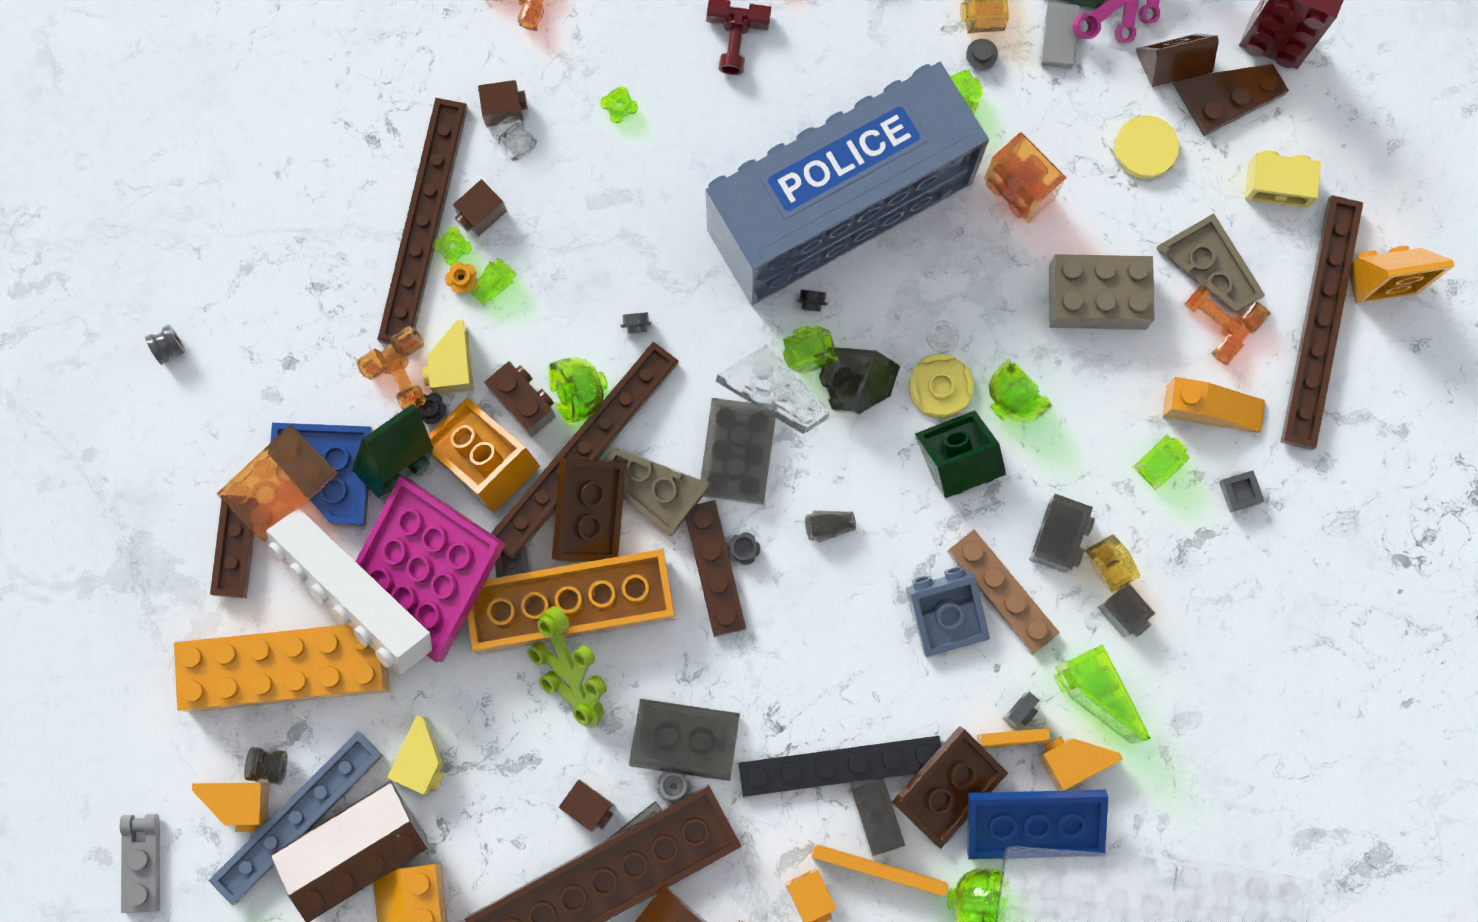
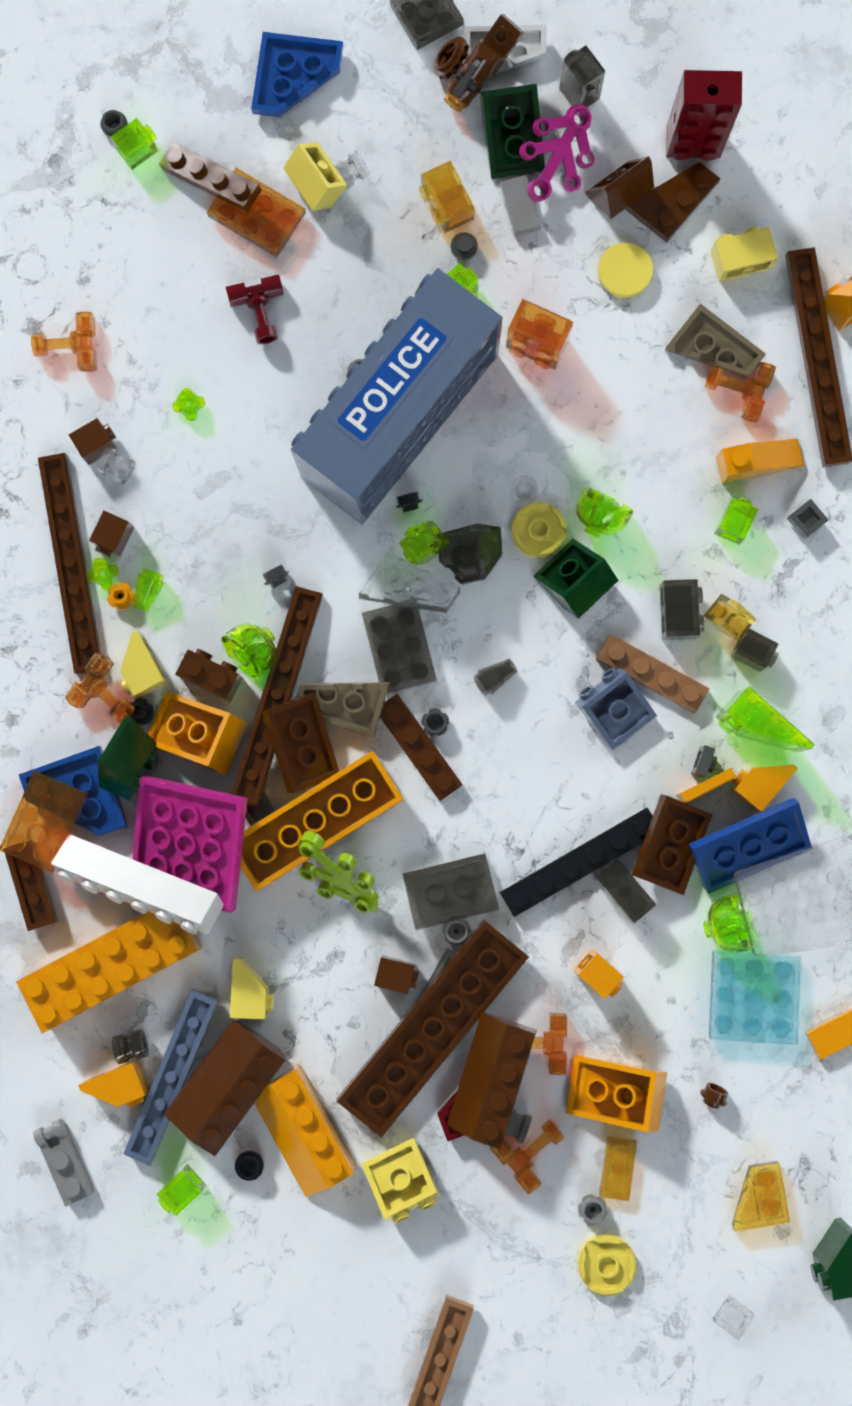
camera: 15 degrees left, 5 degrees up
(880, 870) = (643, 930): light orange tile -> none
(1101, 291) = (635, 403): dark tan brick -> none

